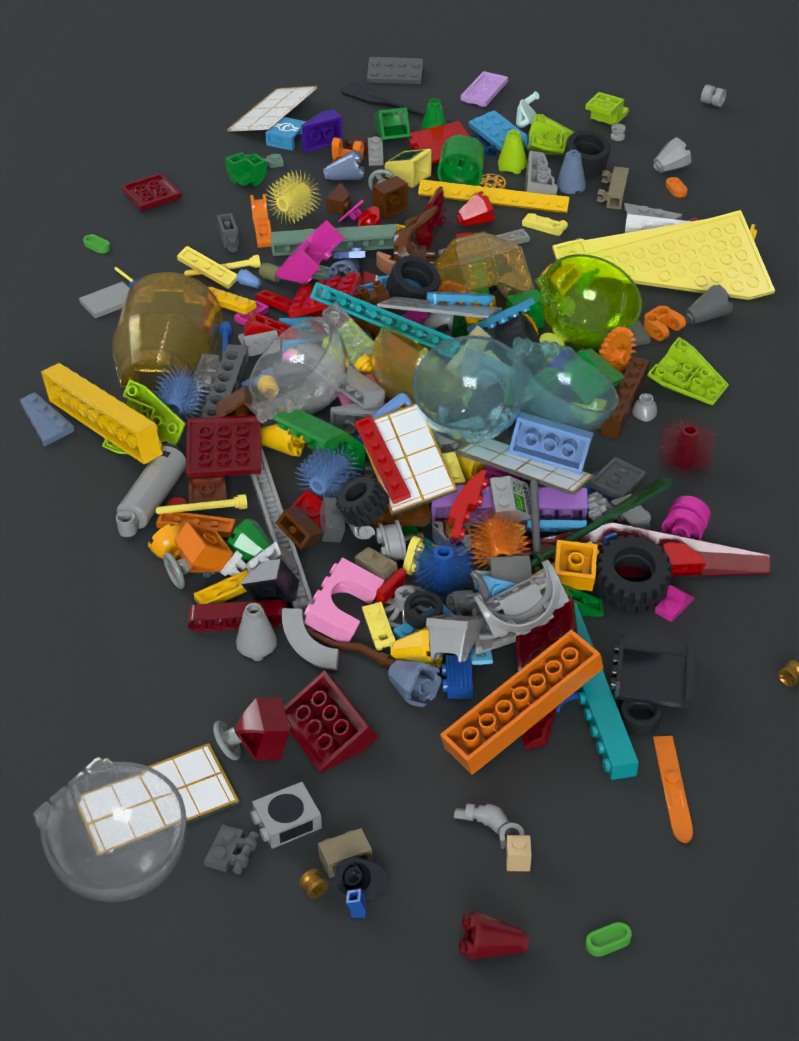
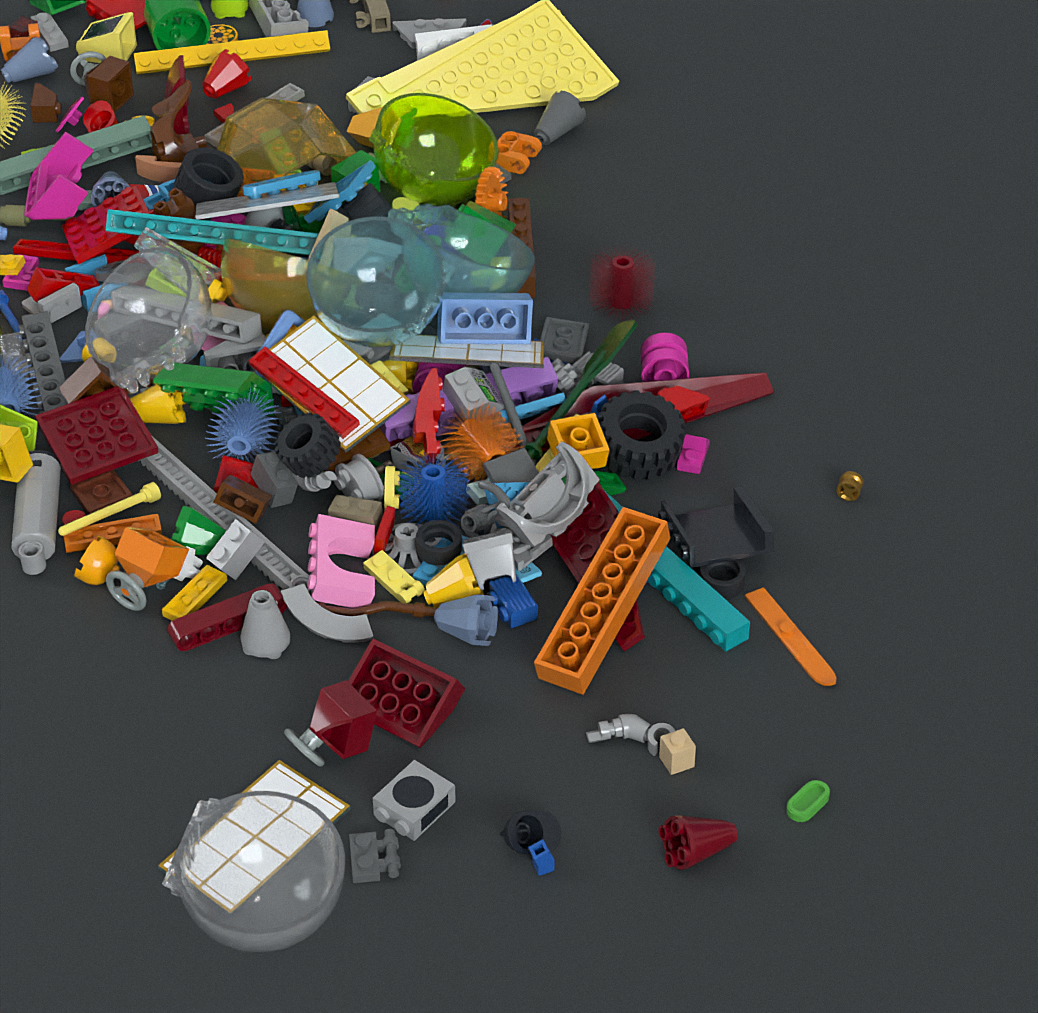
camera: 25 degrees left, 0 degrees up
(272, 582) = (253, 565): black slope -> none
(313, 884) = (484, 856): pearl gold wheel -> none
(337, 849) = (492, 814): dark tan brick -> none
(354, 253) = (106, 165): medium blue wing -> none
(544, 224) = (312, 71): light yellow plate -> none
(645, 408) = (548, 253): light grey piece -> none
(688, 374) = (575, 202): lime wedge -> none

